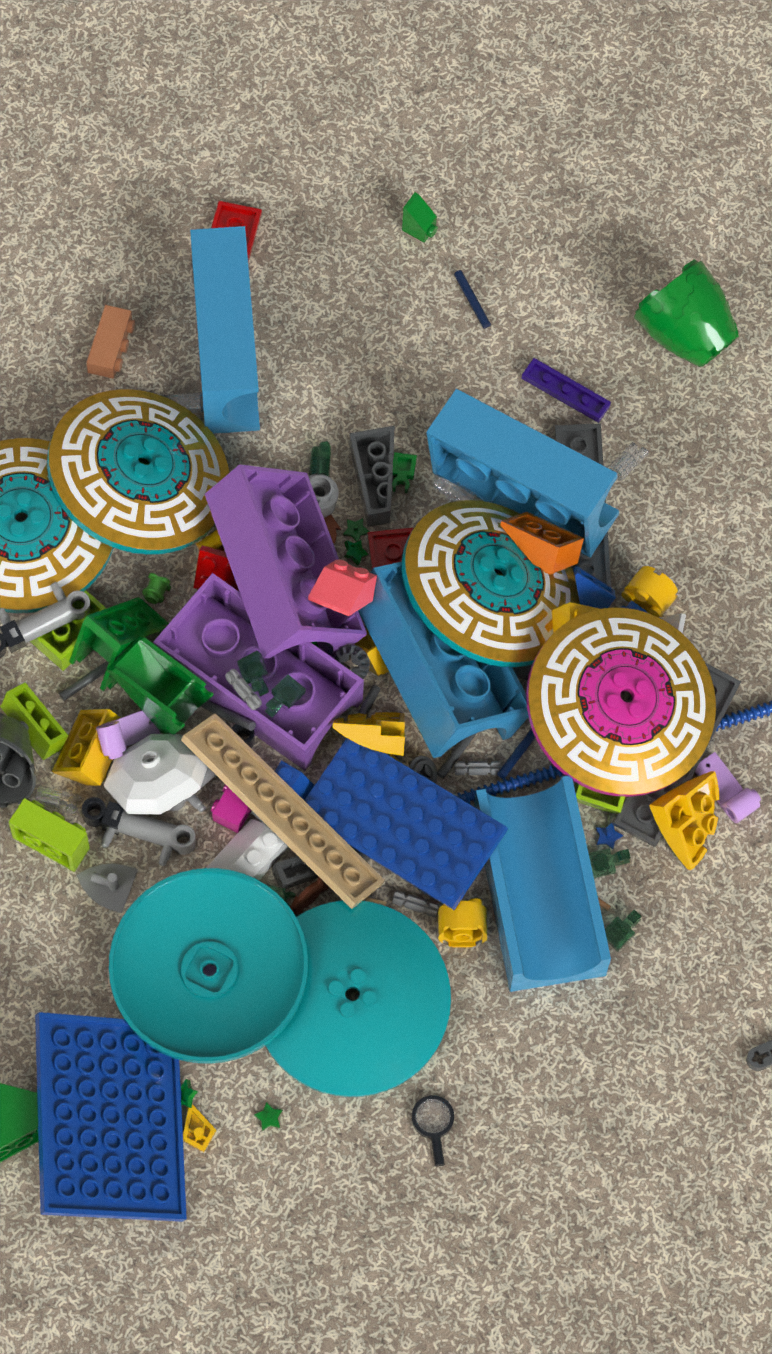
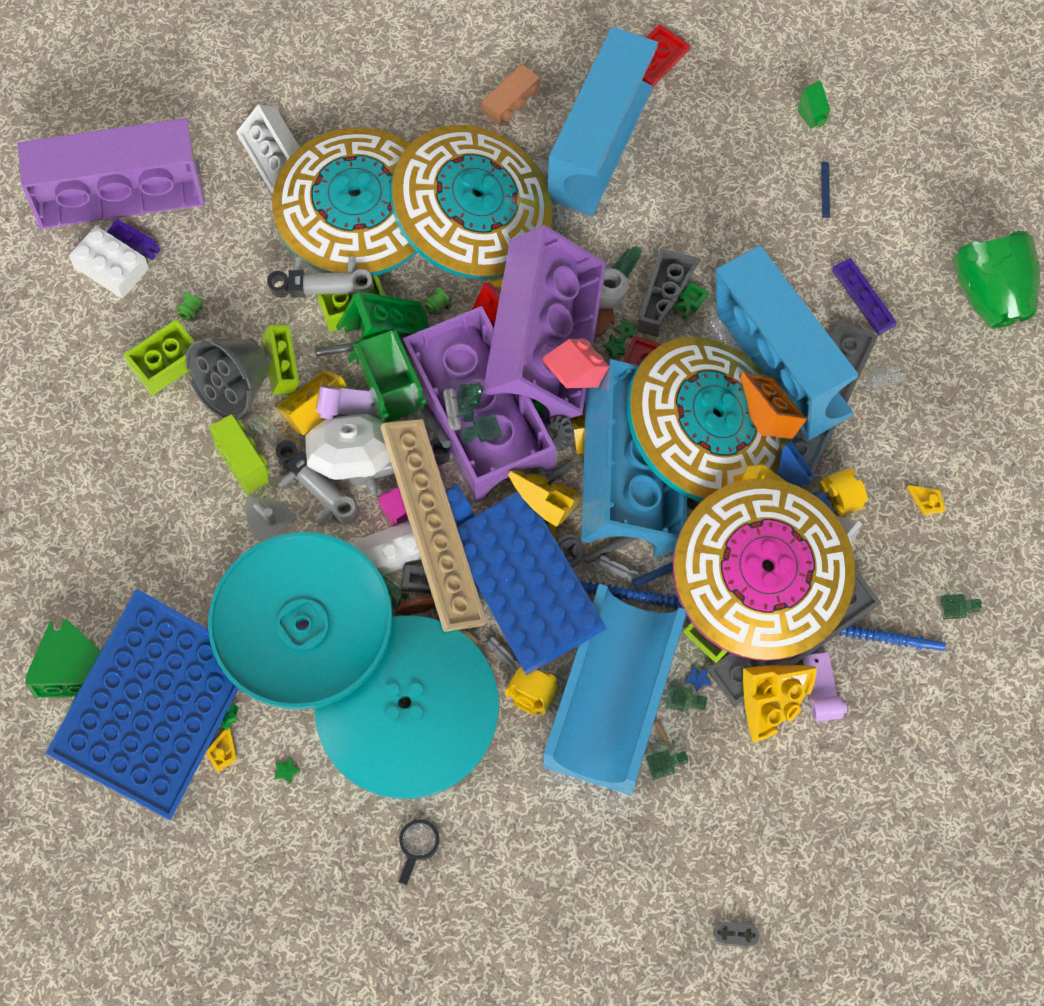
camera: 30 degrees right, 0 degrees up
(727, 562) = (927, 499): none -> yellow piece

